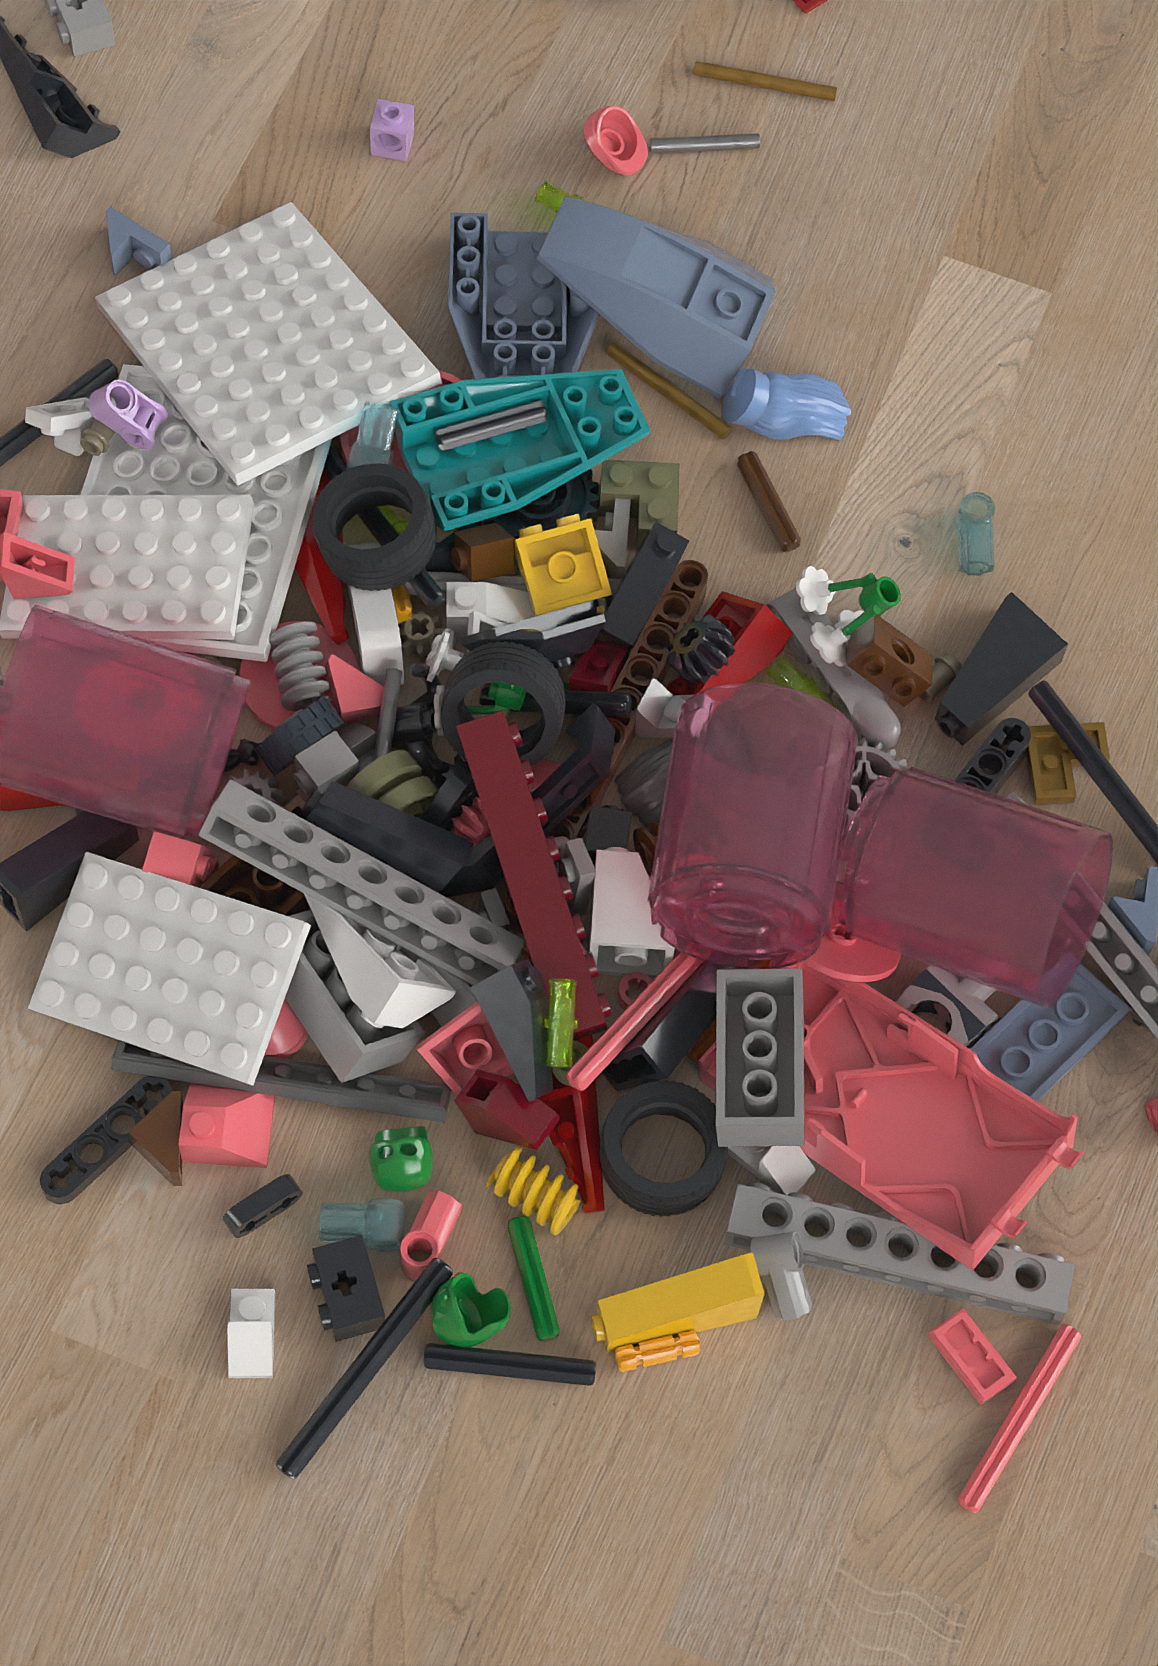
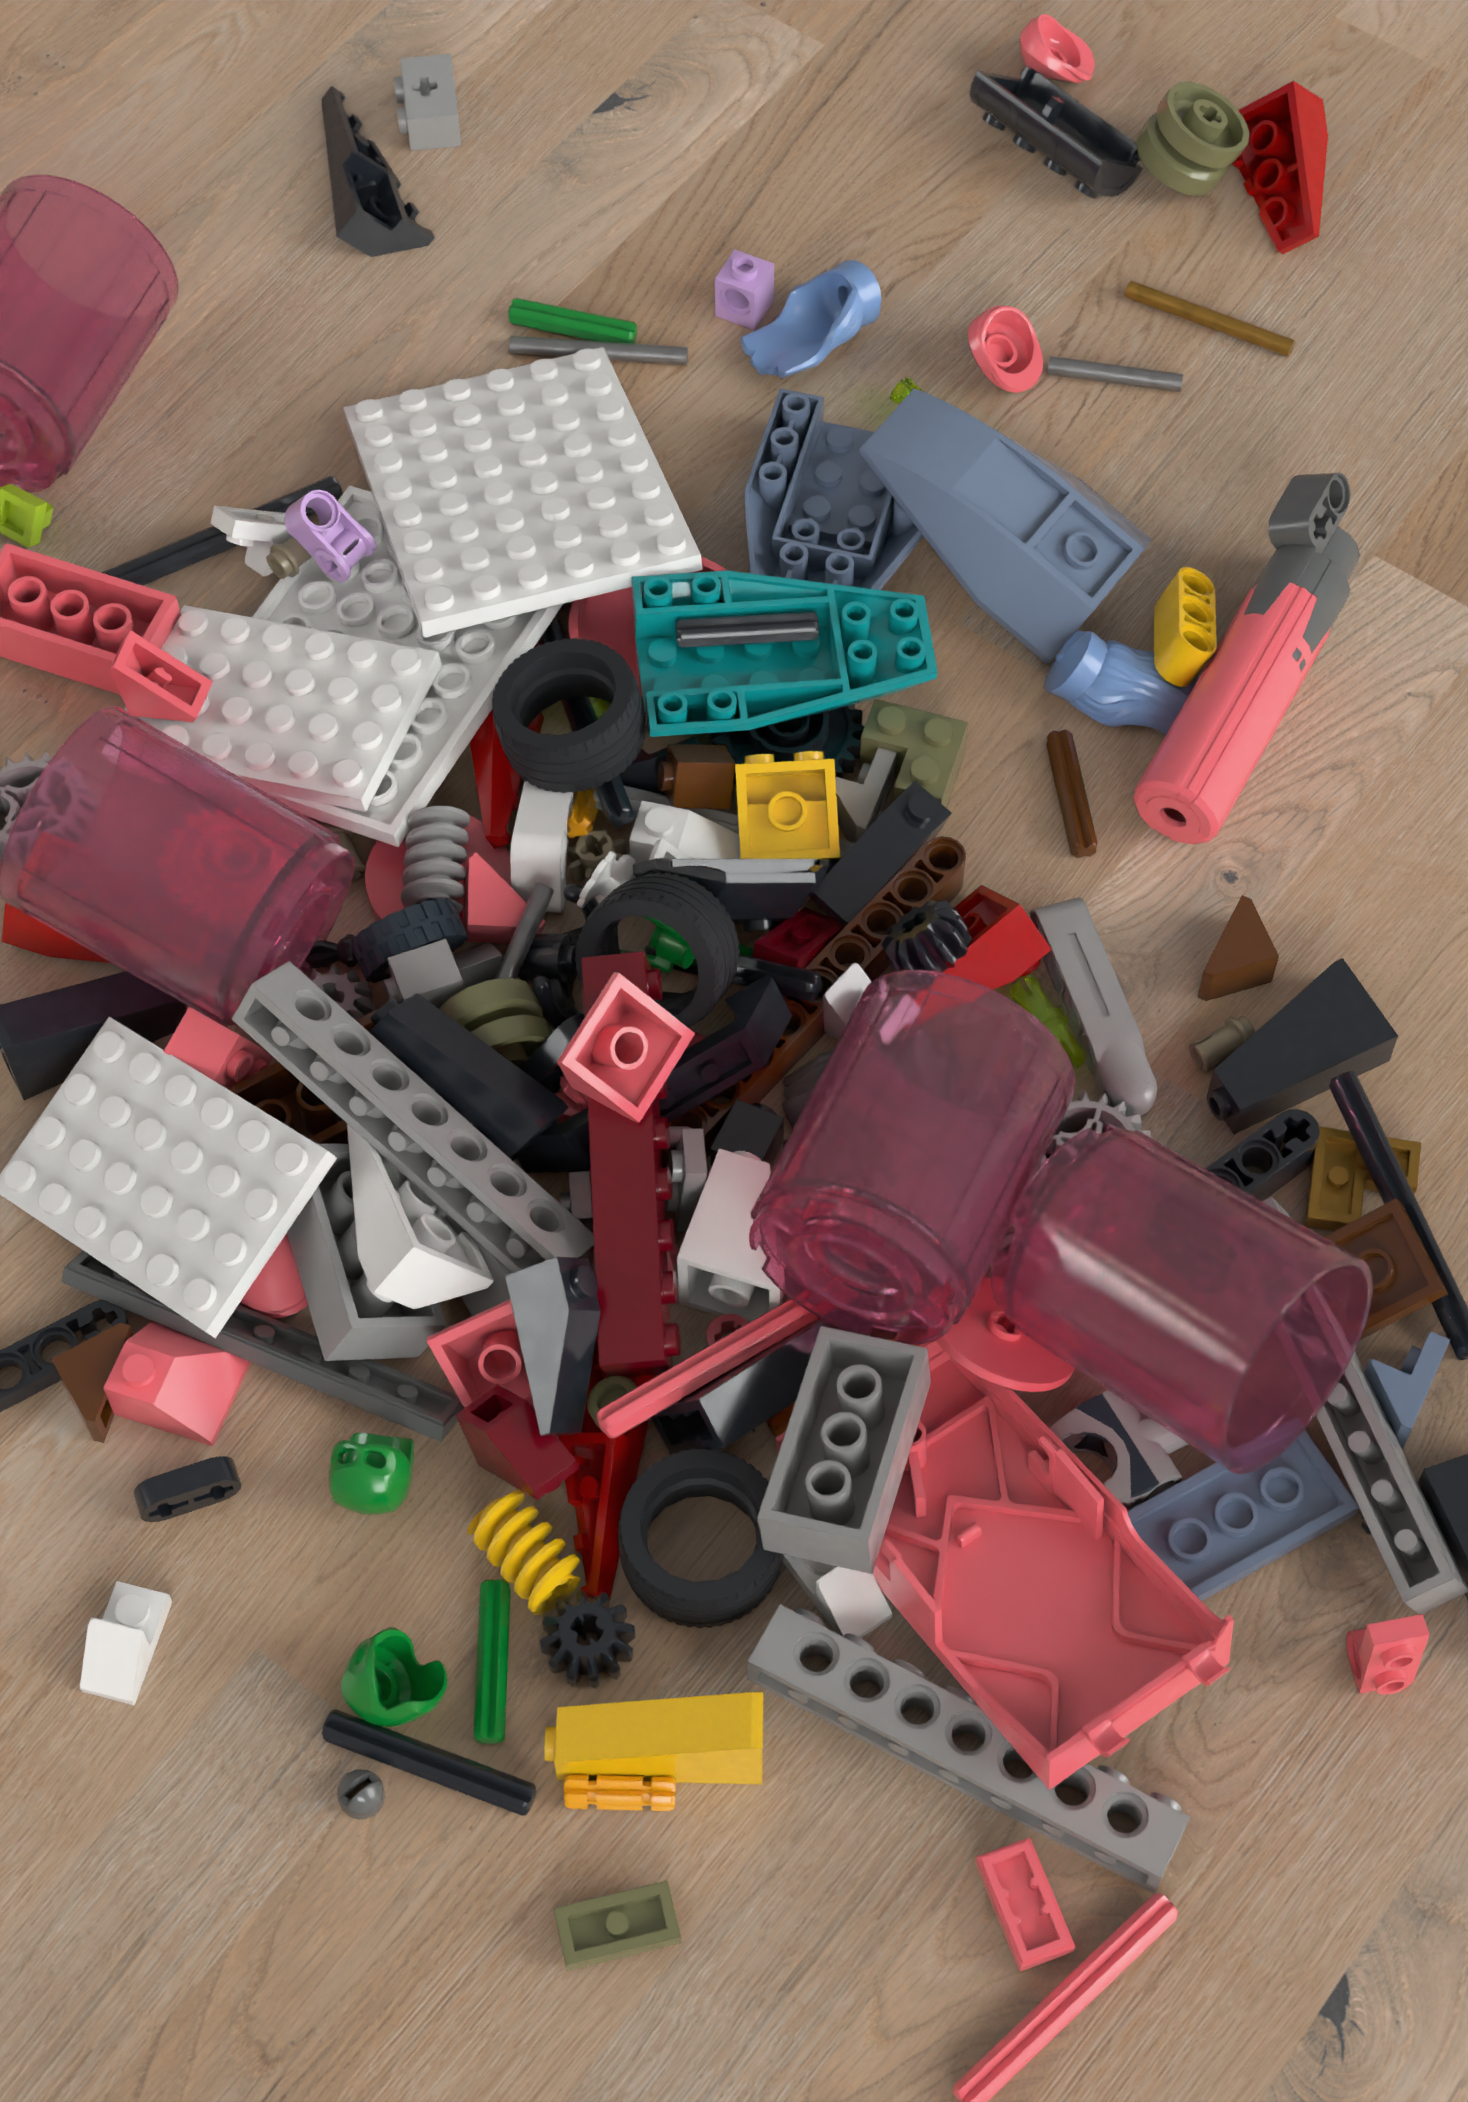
camera: 20 degrees right, 5 degrees down
(132, 240) = (403, 354): sand blue slope -> none
(258, 185) = (571, 322): none -> green axle
(302, 202) = (614, 350): none -> flat silver bar
(350, 1264) = (259, 1647): black brick -> none
(363, 1369) = (240, 1721): black axle -> none
(374, 435) = (604, 611): clear light blue piece -> none
(378, 1221) = (316, 1545): clear light blue piece -> none
(429, 1231) = (378, 1572): coral piece -> none
(457, 146) = (816, 320): none -> medium blue hair
(474, 1404) = (367, 1801): none -> dark grey hinge
(515, 792) = (624, 1049): none -> coral slope
(561, 1022) = (605, 1345): clear neon green pin -> none
(617, 1242) = (597, 1657): none -> black gear
(669, 390) = (988, 642): pearl gold bar -> none
(686, 1447) = (617, 1925): none -> olive plate
(781, 1265) = (803, 1718): light grey piece -> none
(818, 591) = (1133, 960): plant -> none
(821, 348) = (1184, 627): none -> yellow beam
(883, 369) = (1255, 665): none -> coral piece
(889, 660) = (1161, 1005): reddish brown brick -> none
(935, 603) = (1241, 957): none -> reddish brown slope
(975, 535) = (1319, 883): clear light blue piece -> none
(1106, 808) = (1398, 1264): none -> reddish brown plate

